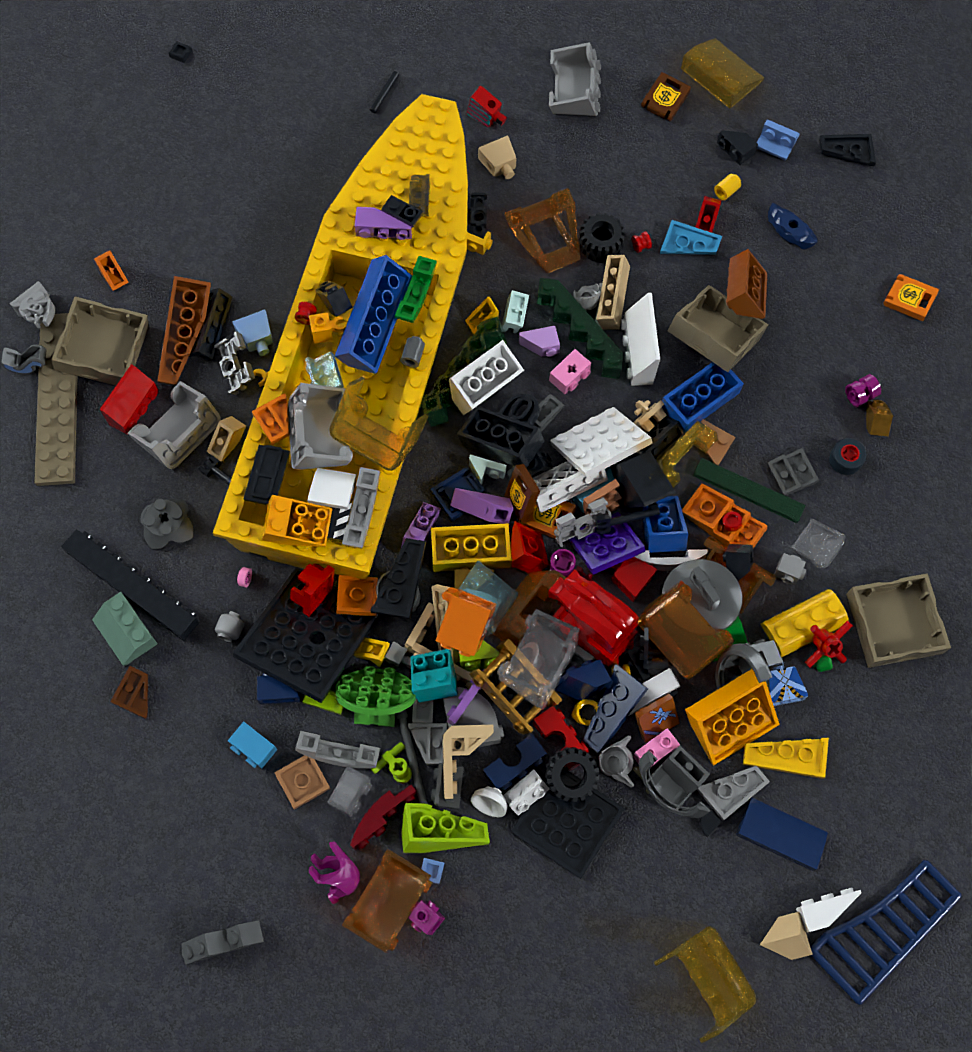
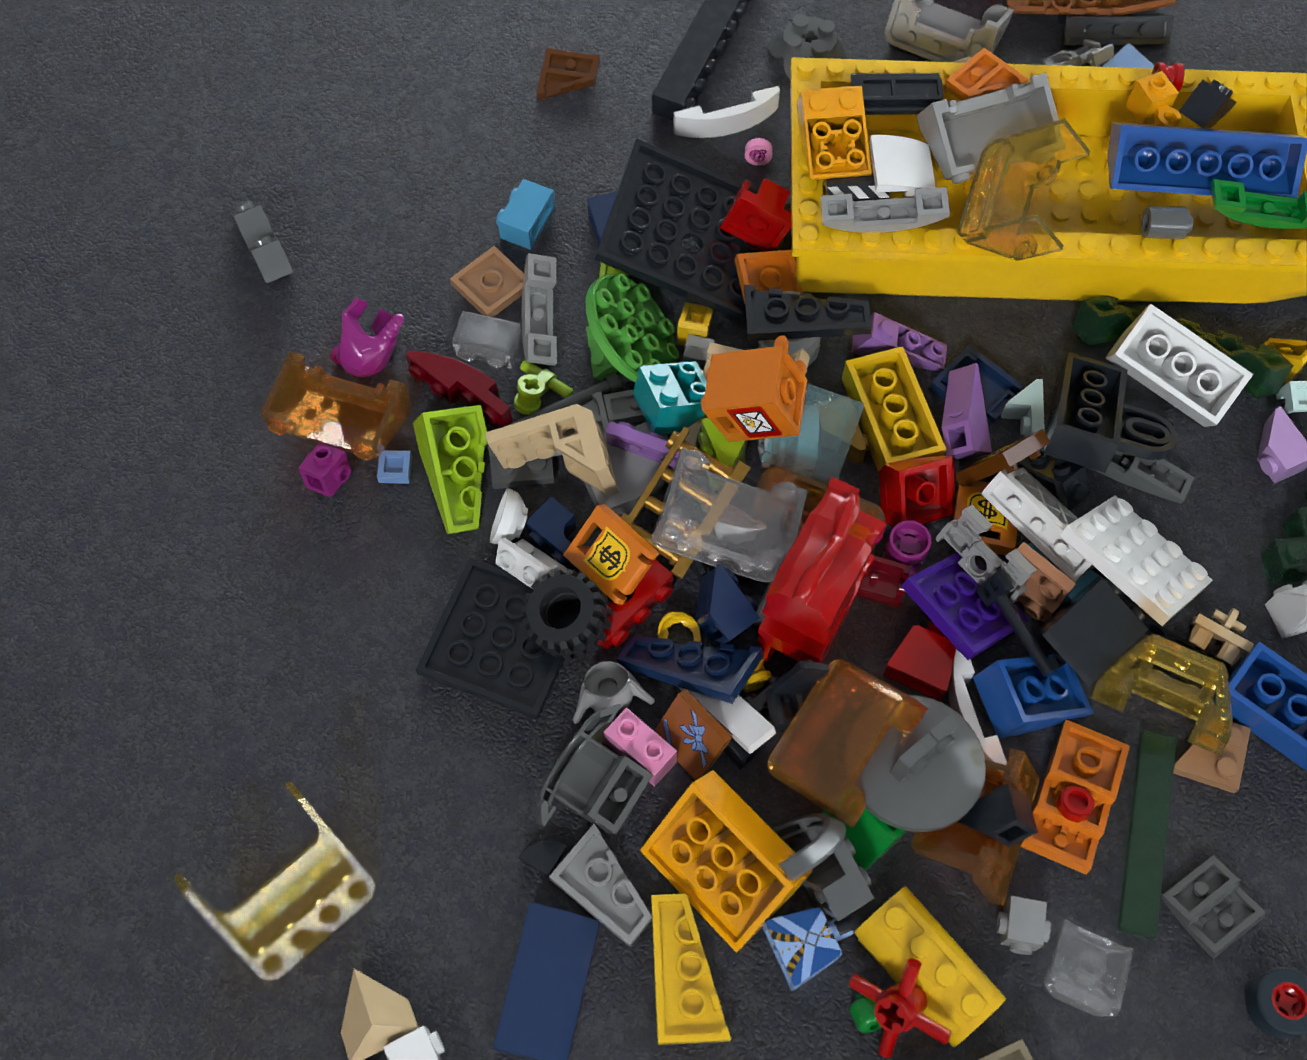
camera: 80 degrees right, 5 degrees down
(123, 629) = (649, 43): sand green slope -> none
(208, 611) = (727, 121): none -> white slope
(229, 626) = (684, 145): light grey head -> none
(324, 371) = (1085, 114): clear light blue bracket -> none
(543, 735) = (614, 557): none -> orange container
(570, 372) = (1247, 500): bright pink brick -> none

